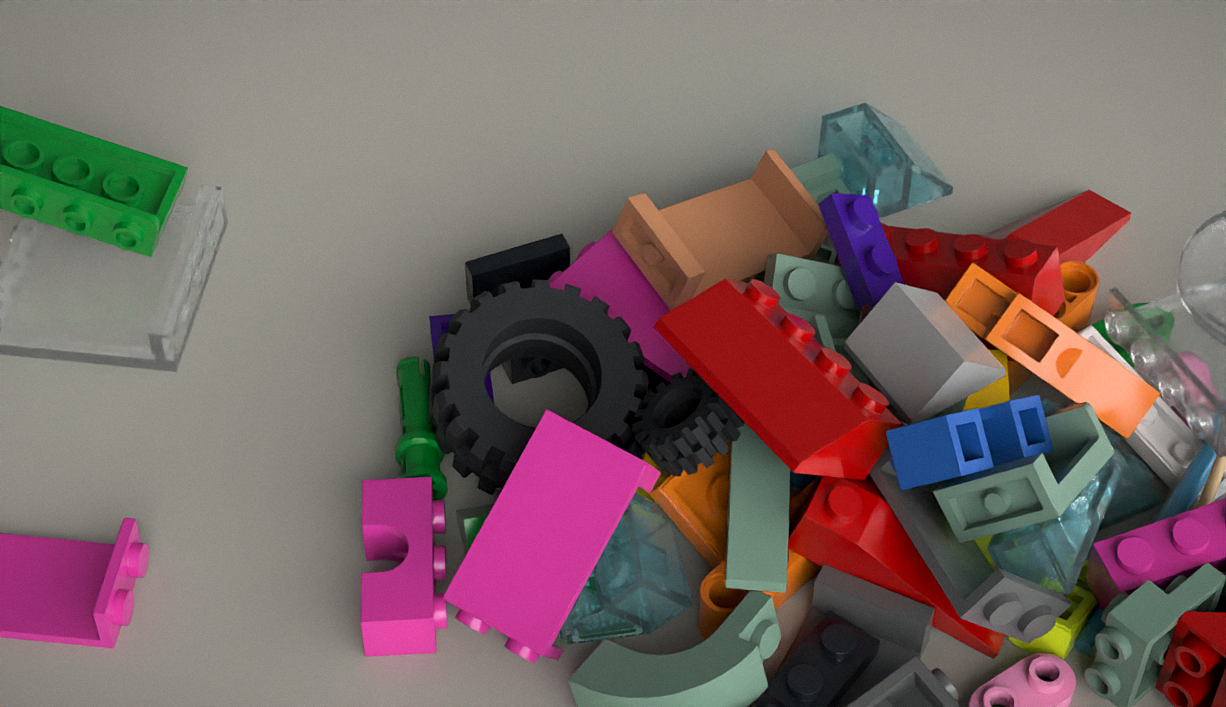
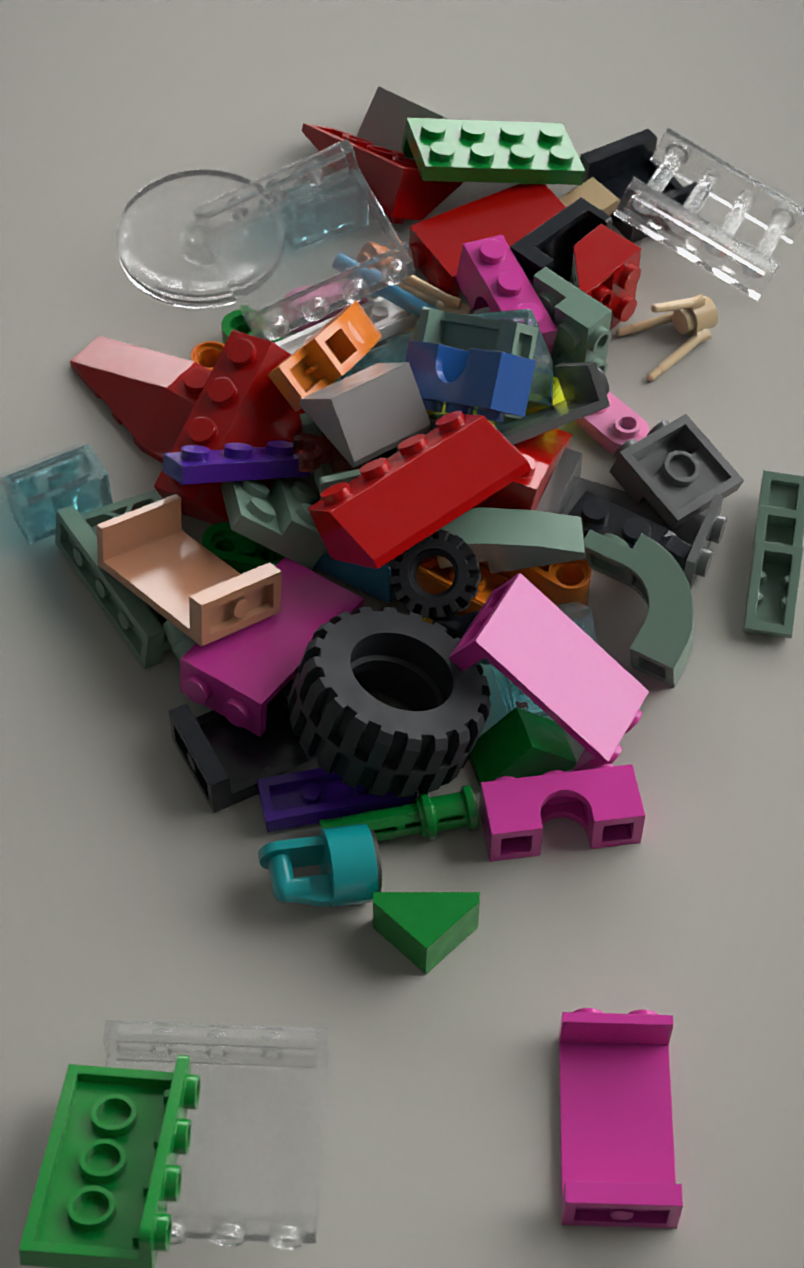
camera: 95 degrees left, 5 degrees up
(280, 434) = (425, 923): none -> green slope
(356, 365) = (346, 861): none -> teal piece

